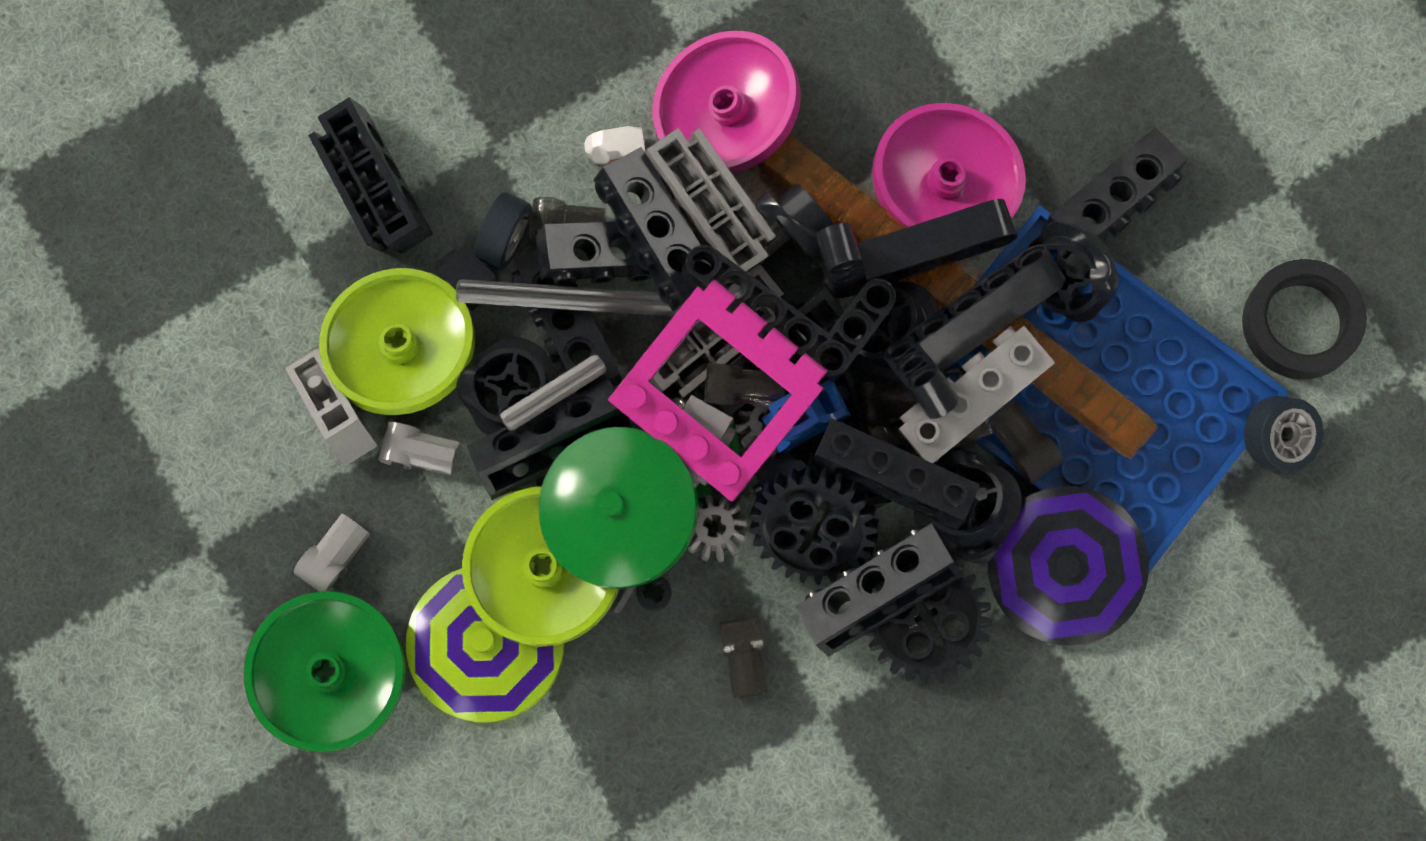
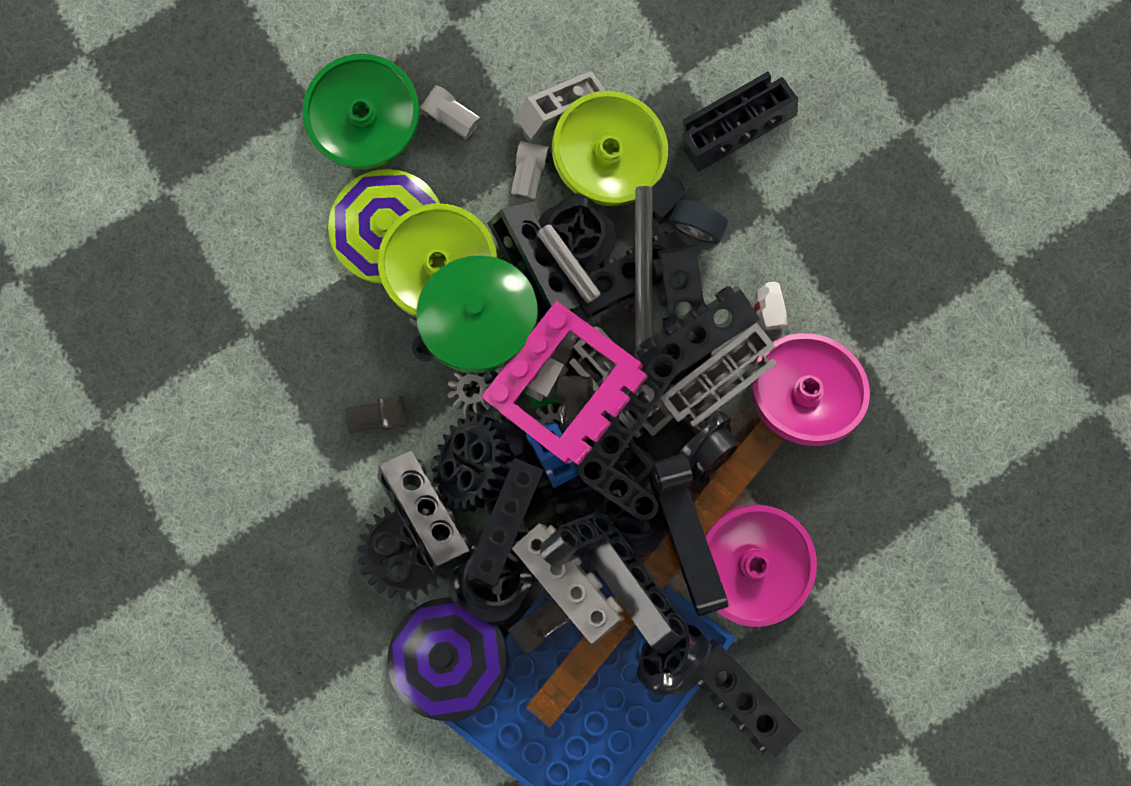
camera: 85 degrees right, 5 degrees up
(555, 211) = (711, 263): clear smoke piece -> none

